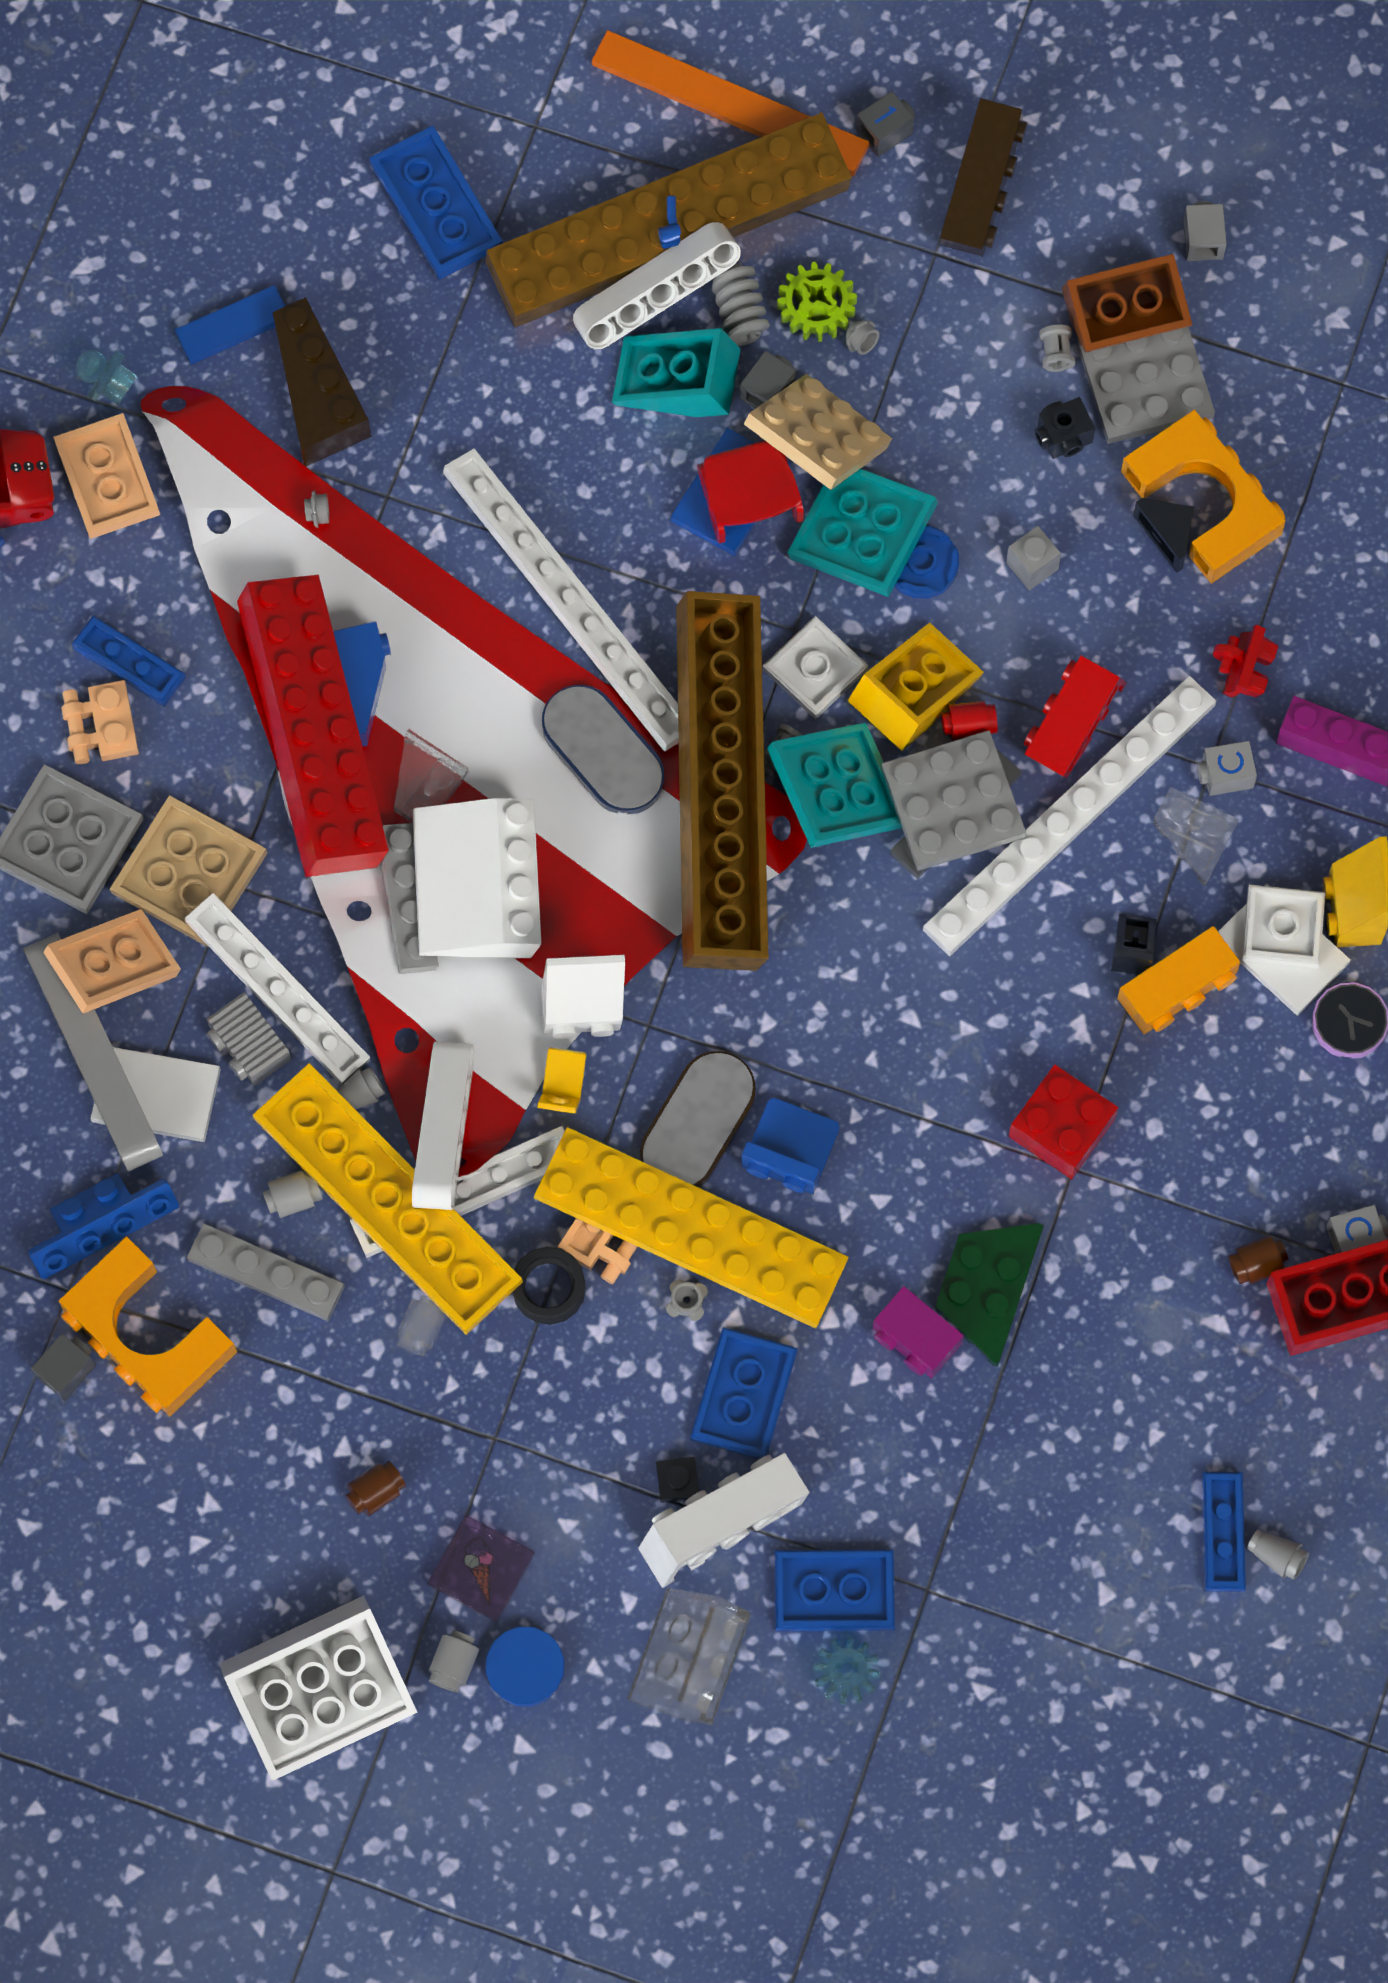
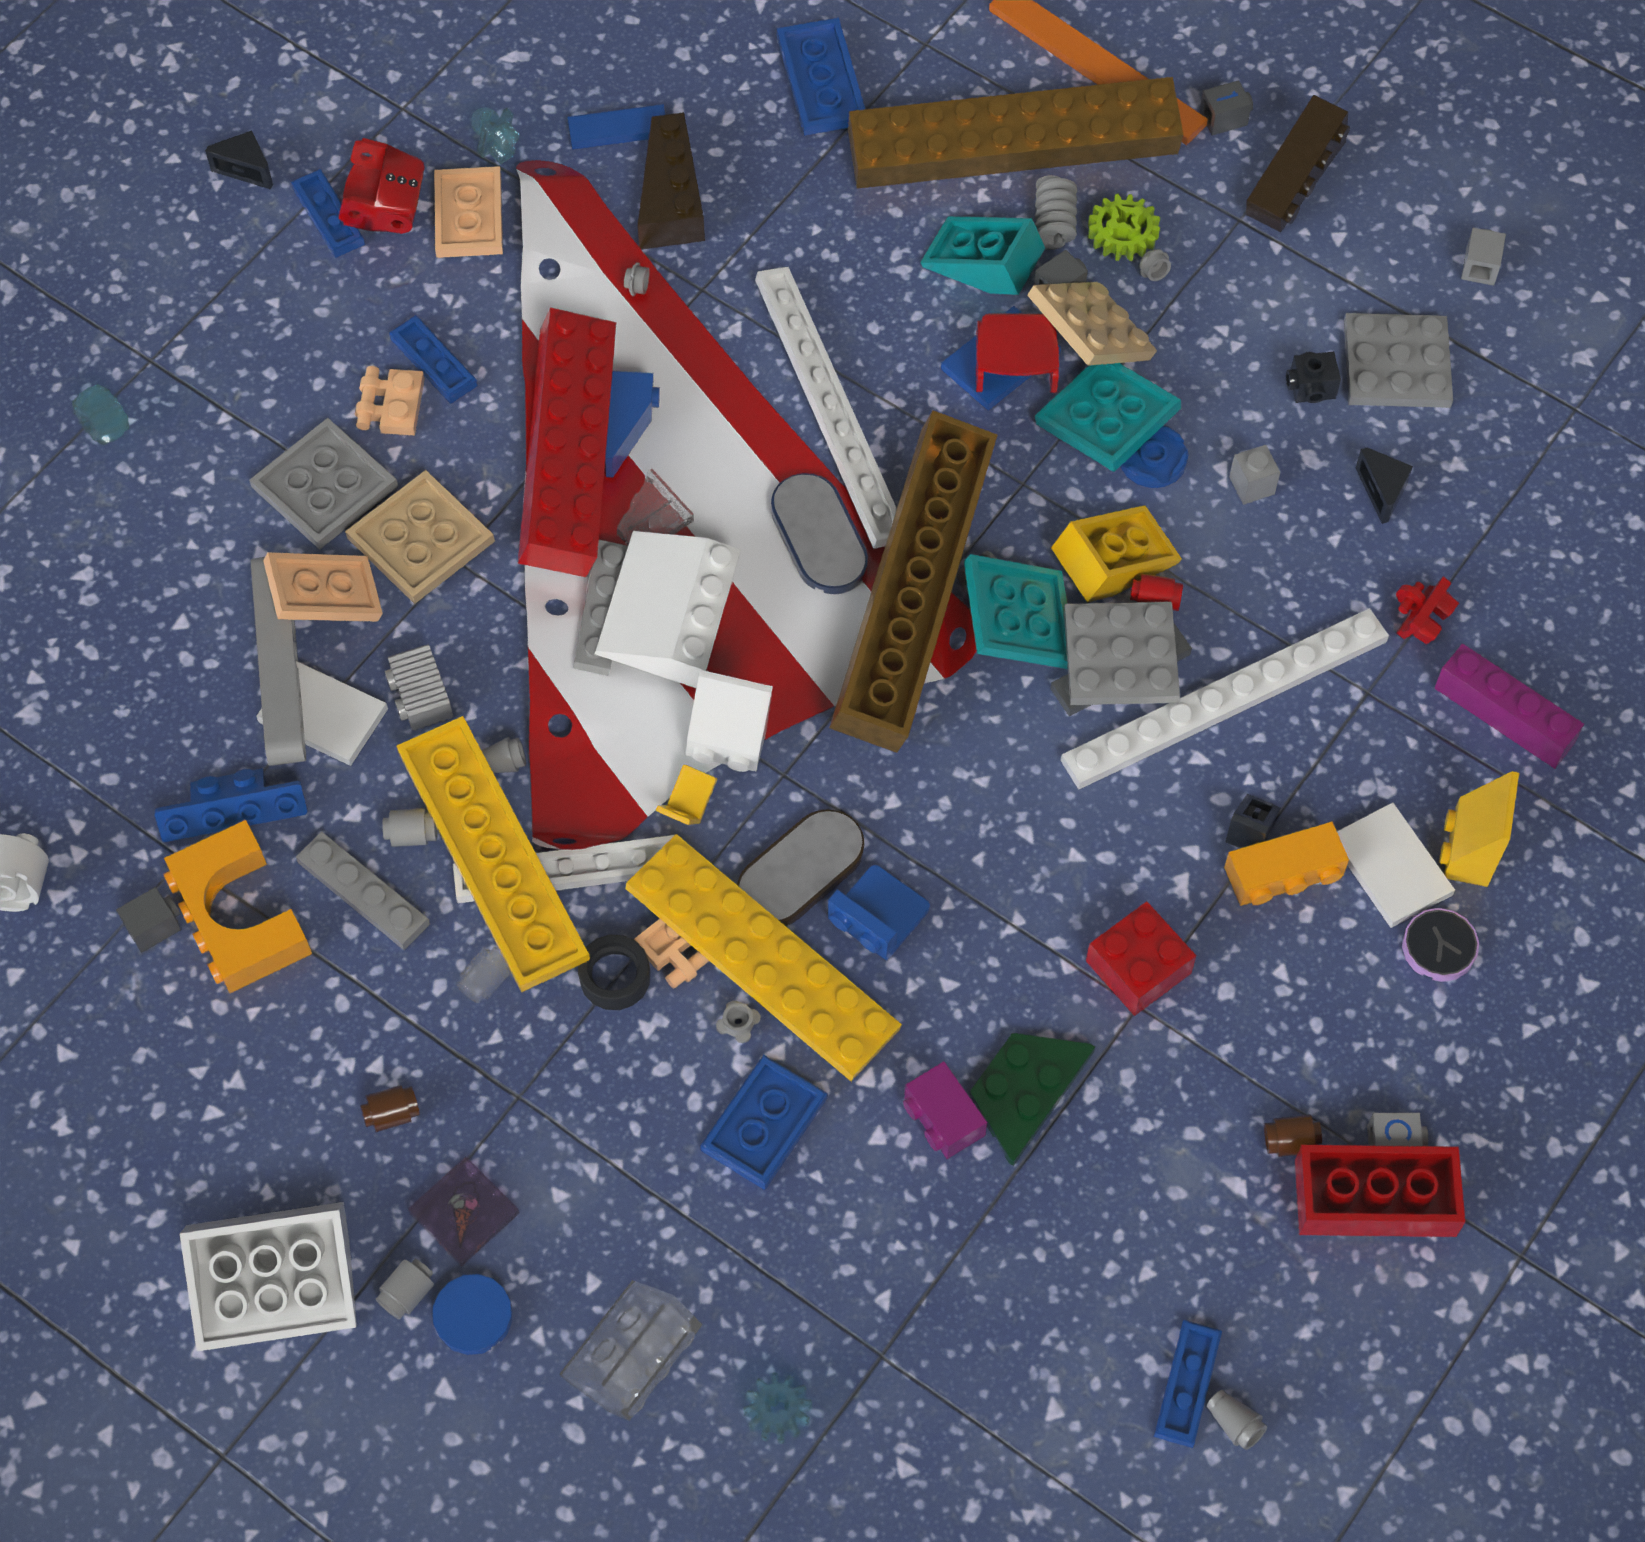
camera: 15 degrees right, 10 degrees down
(277, 989) = (459, 650): white plate -> none
(443, 1126) = (562, 801): white beam -> none
(656, 285) = (1002, 182): white beam -> none
(670, 235) = (1011, 134): blue hand -> none
(677, 1479) = (675, 1182): black plate -> none
(721, 1516) = (703, 1226): white wedge -> none
(815, 667) = (1029, 516): white tile -> none
(834, 1590) = (791, 1329): blue tile -> none
(1057, 348) = (1325, 314): light grey bush -> none
(1072, 715) = (1253, 610): red wedge -> none
(1127, 303) = (1398, 289): dark orange slope -> none
(1194, 448) = (1426, 423): light orange arch -> none
(1195, 830) = (1338, 741): clear wing -> none
(1227, 768) = (1383, 694): light grey brick -> none
(1283, 926) = (1399, 842): white tile -> none

